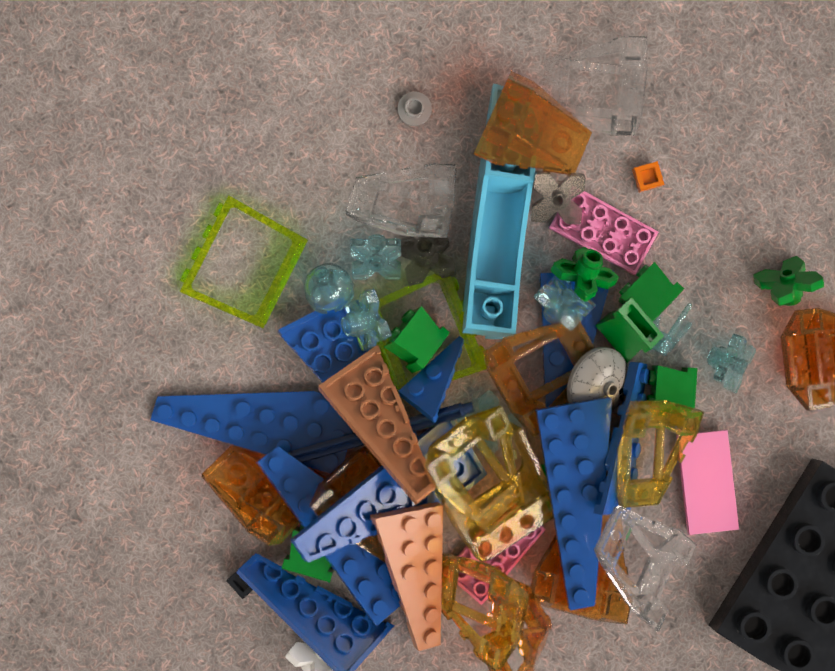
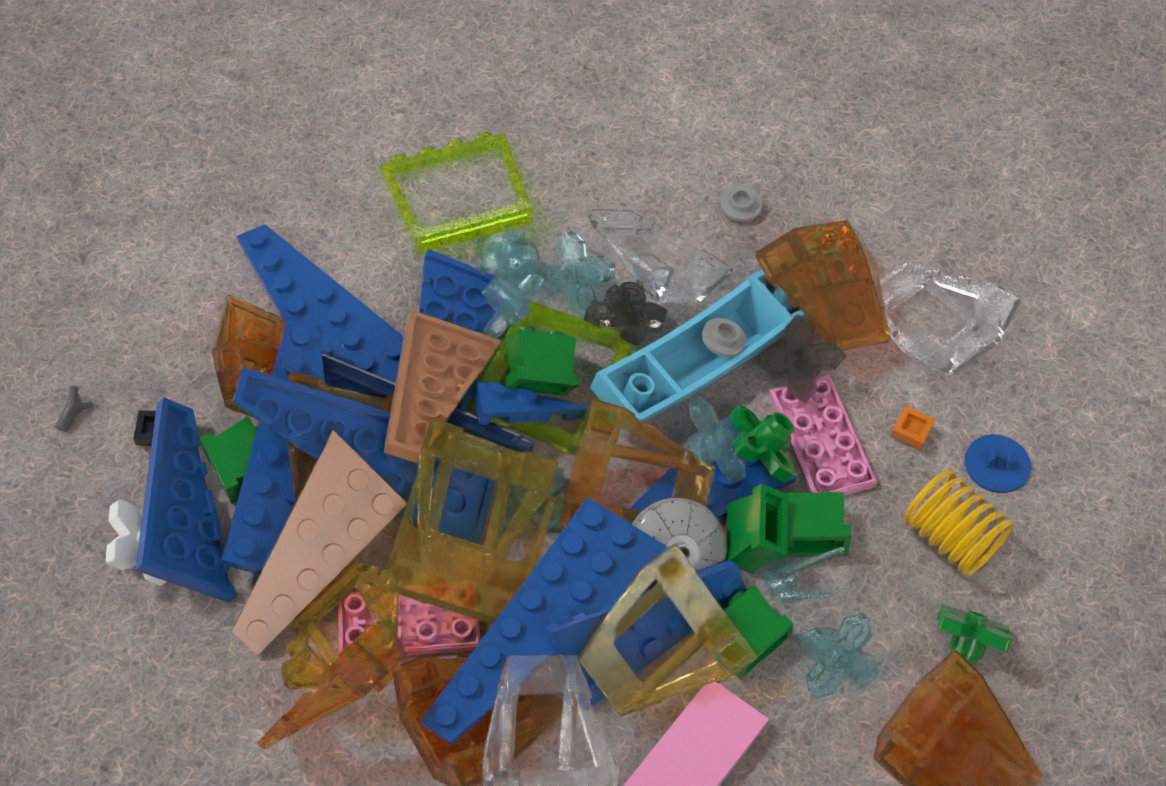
camera: 45 degrees right, 30 degrees down
(185, 612) = (71, 410): none -> dark grey bar
(504, 226) = (723, 337): none -> light grey piece
(708, 154) = (997, 463): none -> blue piece
(747, 224) = (948, 525): none -> yellow piece

